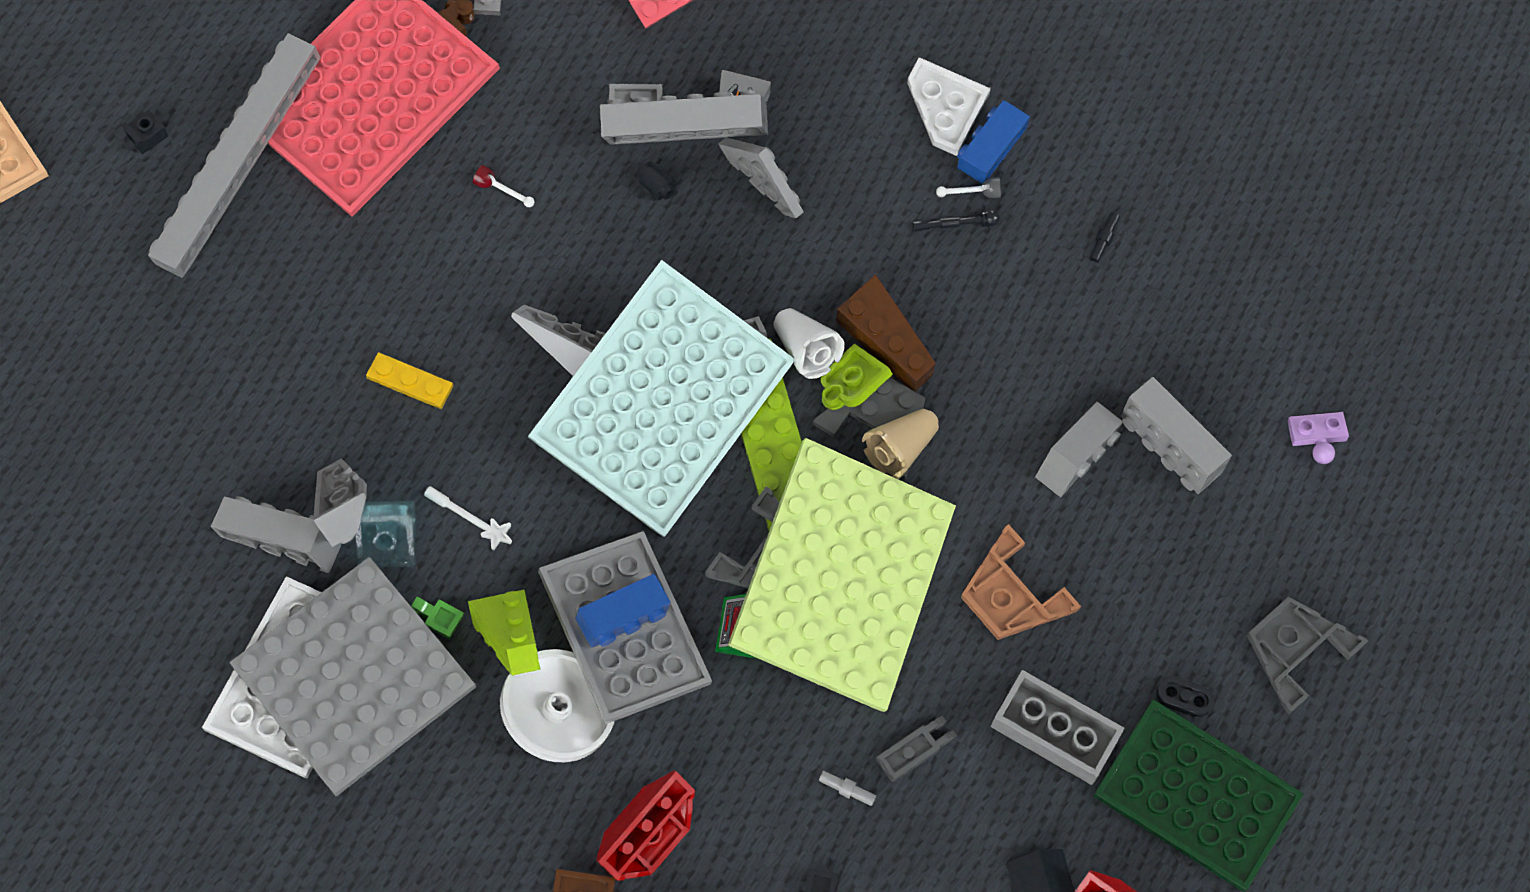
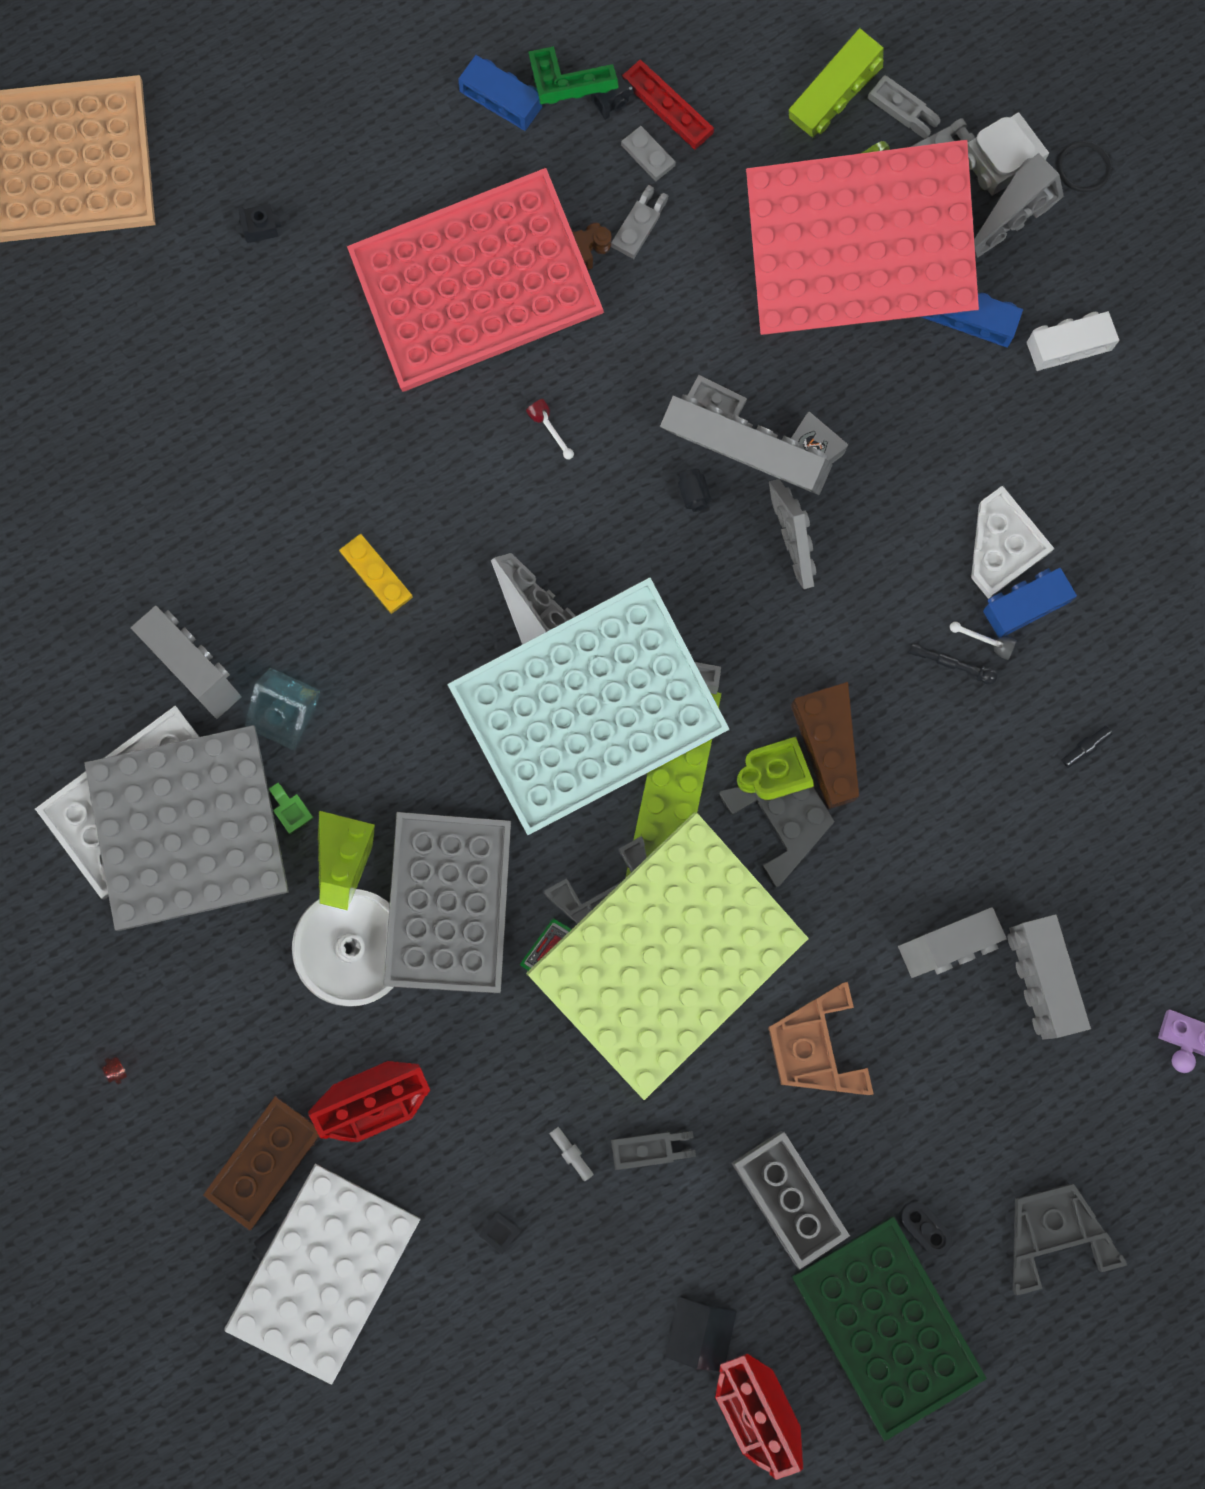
camera: 25 degrees right, 10 degrees up
(234, 155) = (324, 284): light grey brick -> none
(339, 502) = (246, 662): light grey wedge -> none
(494, 532) = (379, 752): white piece -> none
(623, 611) = (450, 892): blue brick -> none
(808, 342) = (751, 716): white cone -> none
(900, 441) = (787, 855): tan cone -> none

